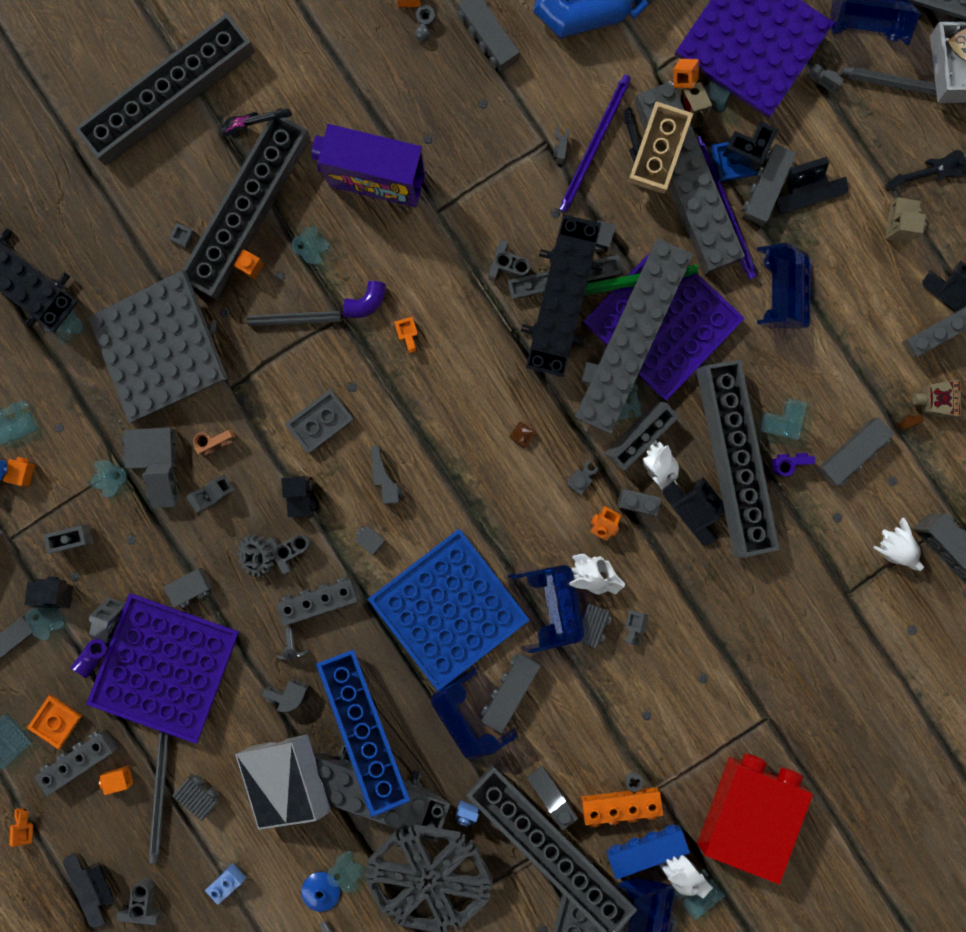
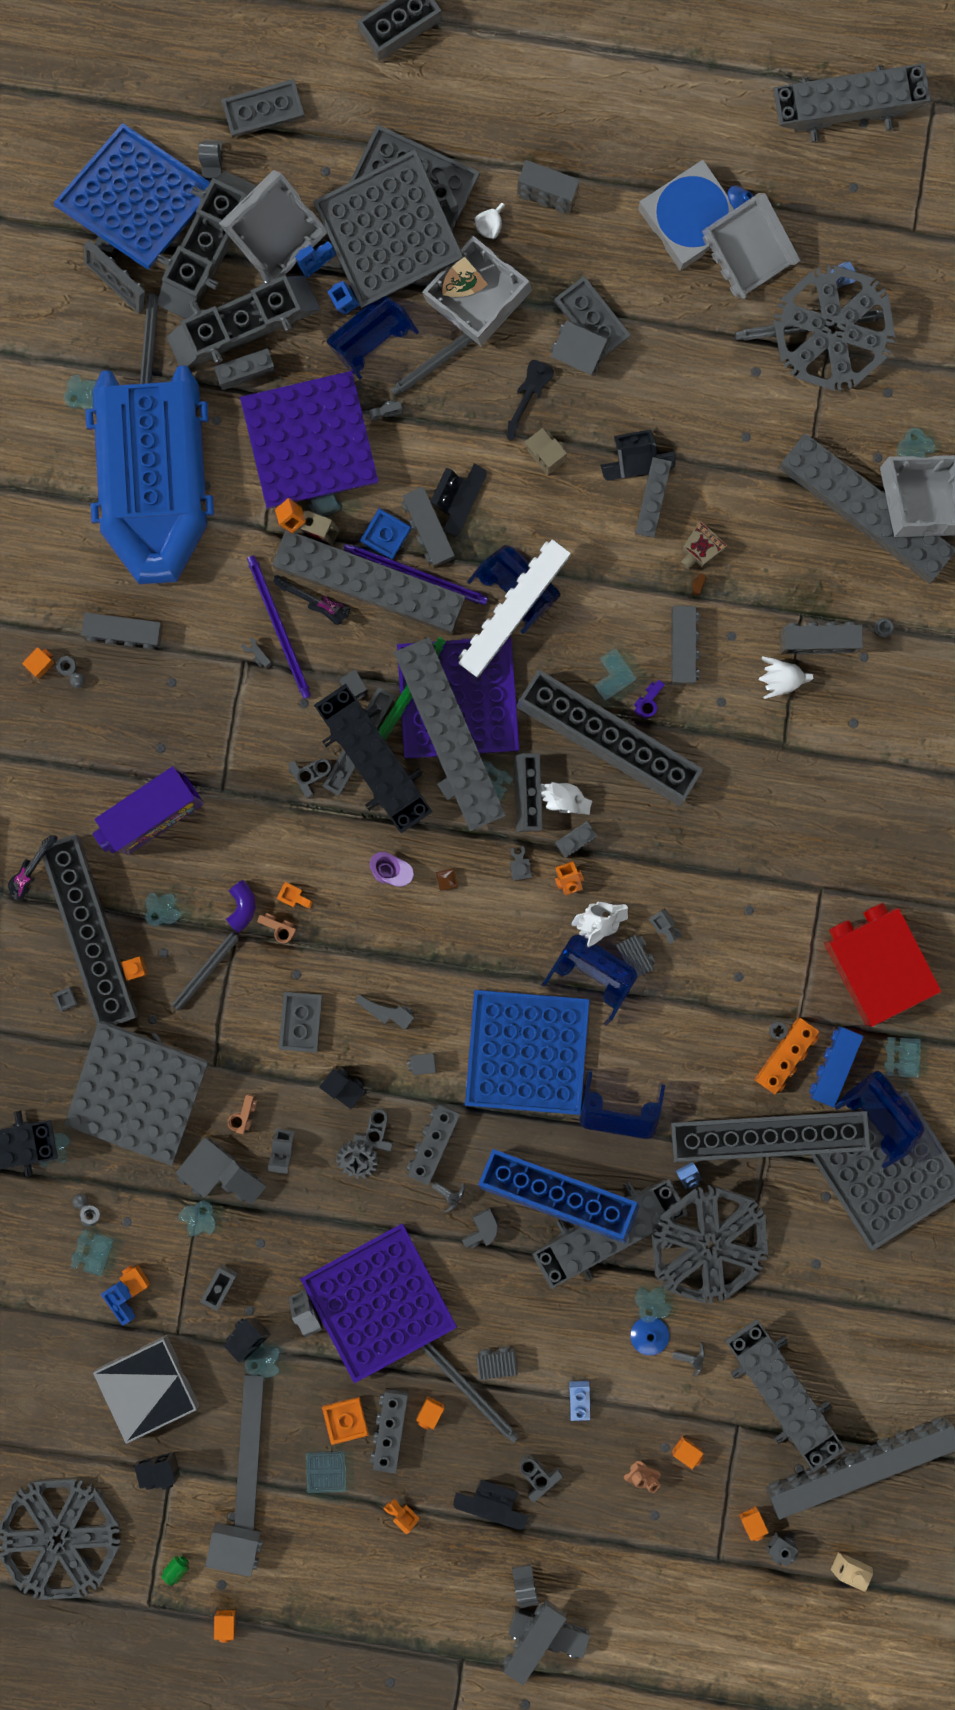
camera: 40 degrees left, 0 degrees up
(42, 380) = (80, 1202): none -> dark grey plate
(89, 657) = (321, 1350): dark purple cylinder -> none
(188, 587) = (336, 1230): dark grey brick -> none
(283, 783) = (543, 1287): light grey tile -> none
(373, 332) = (269, 920): none -> nougat plate
(492, 385) = (390, 869): none -> medium lavender piece
(510, 692) = (629, 1061): dark grey brick -> none
(552, 797) = (734, 1101): dark grey slope -> none
(660, 147) = (328, 587): tan brick -> none
(685, 877) = (878, 1055): white piece -> none
(696, 508) = (619, 800): black plate -> none
(753, 150) = (391, 520): black brick -> none
(770, 300) = (514, 609): none -> white brick

